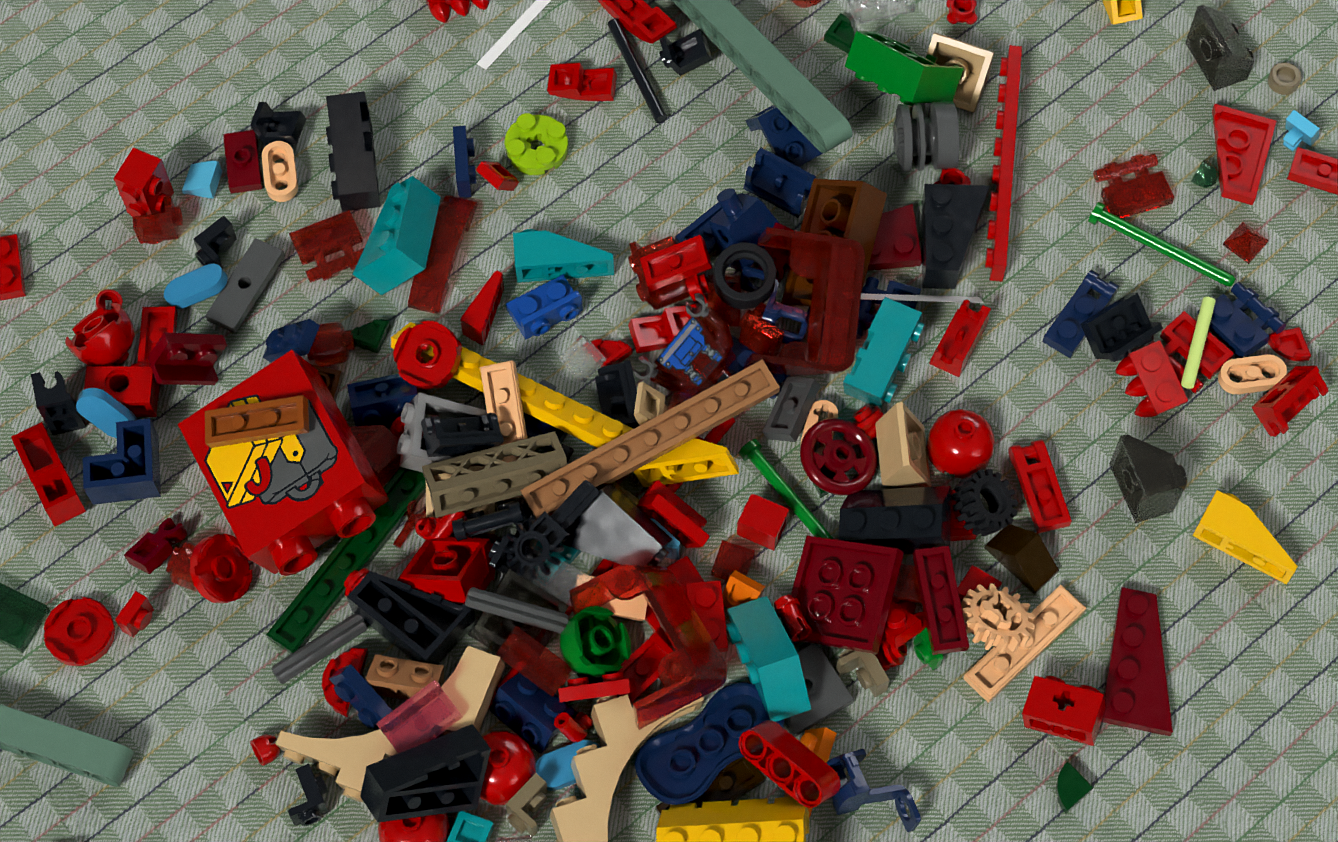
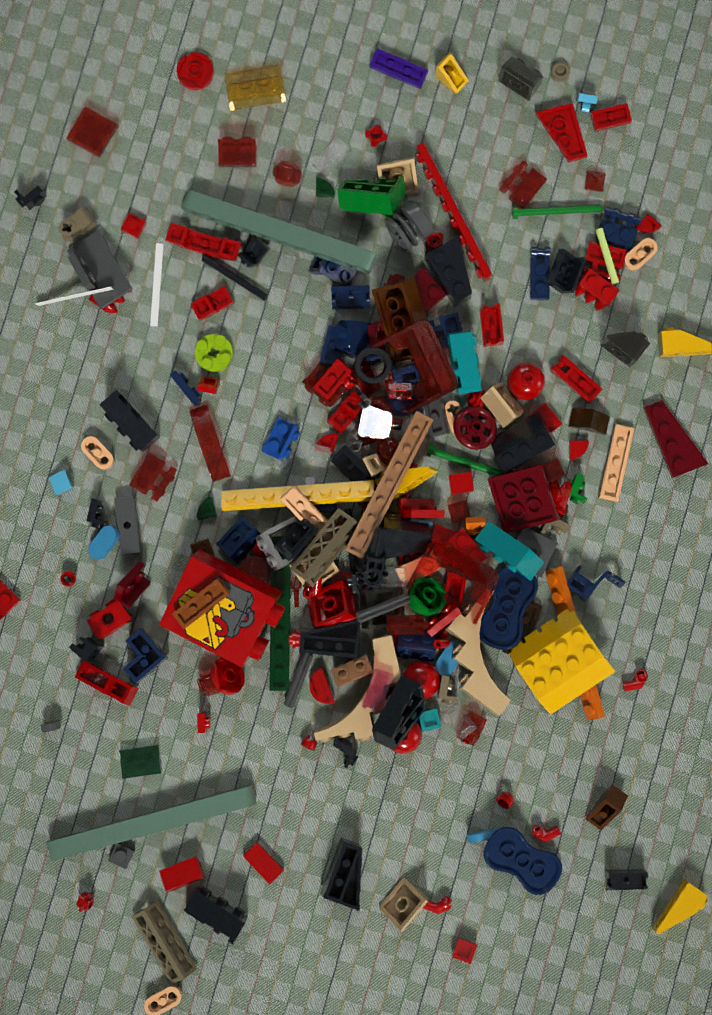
camera: 30 degrees left, 20 degrees up
(79, 631) = (180, 746): red tile -> none
(102, 337) = (80, 600): red cylinder -> none
(102, 410) = (113, 636): dark azure tile -> none
(143, 183) = (39, 509): red brick -> none
(153, 325) = (104, 579): red plate -> none
(155, 548) = (186, 685): dark red plate -> none
(159, 226) = (61, 523): clear red bracket -> none
(242, 161) = (73, 459): dark red plate -> none
(277, 126) = (78, 429): black bracket -> none
(293, 337) = (174, 541): dark blue plate -> none
(331, 344) = (192, 529): clear red head -> none
(355, 689) = (333, 692): dark blue plate -> none
(400, 237) = (187, 451): teal wedge -> none
(446, 357) = (241, 515): red plate -> none
(479, 523) = (336, 574): black plate -> none
(481, 312) = (254, 466): red slope -> none
(550, 255) = (265, 412): teal slope -> none
(788, 610) = (507, 524): red pin -> none
(789, 763) = (555, 598): red beam -> none
(920, 298) = (464, 315): white sticker -> none
(940, 600) = (571, 473): dark red plate -> none
(997, 497) = (565, 403): black tyre -> none
(997, 618) = (600, 463): light nougat gear -> none
(1071, 787) = (678, 519): dark green tile -> none
(1077, 723) = (667, 487): red brick -> none
(1205, 175) = (554, 155): clear green hinge -> none
(1289, 398) = (664, 257): red hinge -> none

